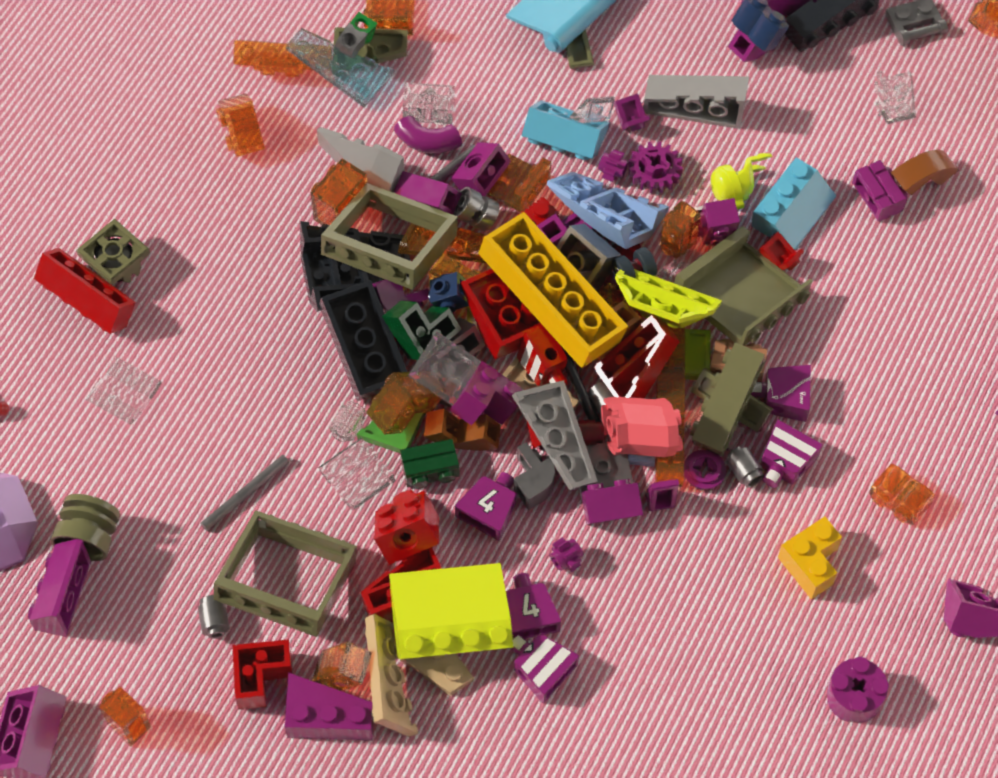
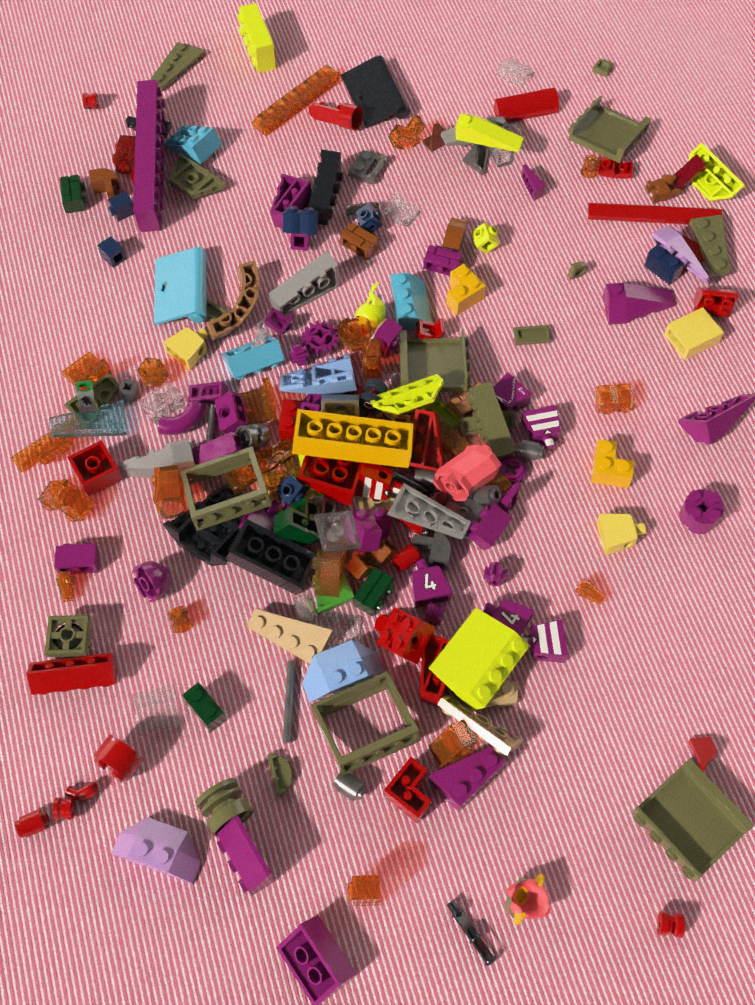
camera: 45 degrees left, 0 degrees up
(43, 400) = (118, 758): none -> red brick
(162, 206) = (66, 585): none -> clear orange cone
(163, 426) = (204, 707): none -> dark green brick
(169, 549) = (281, 773): none -> olive tile
(196, 188) = (77, 558): none -> magenta brick
(228, 325) = (180, 619): none -> clear orange wheel
(240, 267) = (152, 580): none -> magenta cylinder
(297, 114) = (94, 468): none -> red brick
(311, 438) = (291, 634): none -> tan wing
(321, 506) = (340, 669): none -> light blue wedge
(414, 69) = (126, 394): none -> flat silver wheel
(450, 64) = (153, 372): none -> clear orange brick
(465, 537) = (434, 613): none -> magenta wheel
(497, 460) = (406, 558): none -> red brick
(498, 135) = (218, 389): none -> magenta slope
(513, 66) = (187, 346): none -> light yellow torso
(608, 68) = (228, 322): none -> medium nougat brick
(644, 470) = (487, 494): none -> flat silver brick
(644, 659) = (590, 592): none -> clear orange cone
(692, 186) = (353, 331): none -> clear orange cylinder
(742, 630) = (618, 532): none -> light yellow torso
(812, 96) = (359, 241): none -> dark orange brick
(848, 79) = (369, 218): none -> dark blue brick
(855, 61) = (351, 209): none -> clear smoke axle
(866, 246) = (465, 291): none -> yellow brick
(891, 351) = (531, 335): none -> olive tile
(955, 203) = (485, 237): none -> neon yellow brick

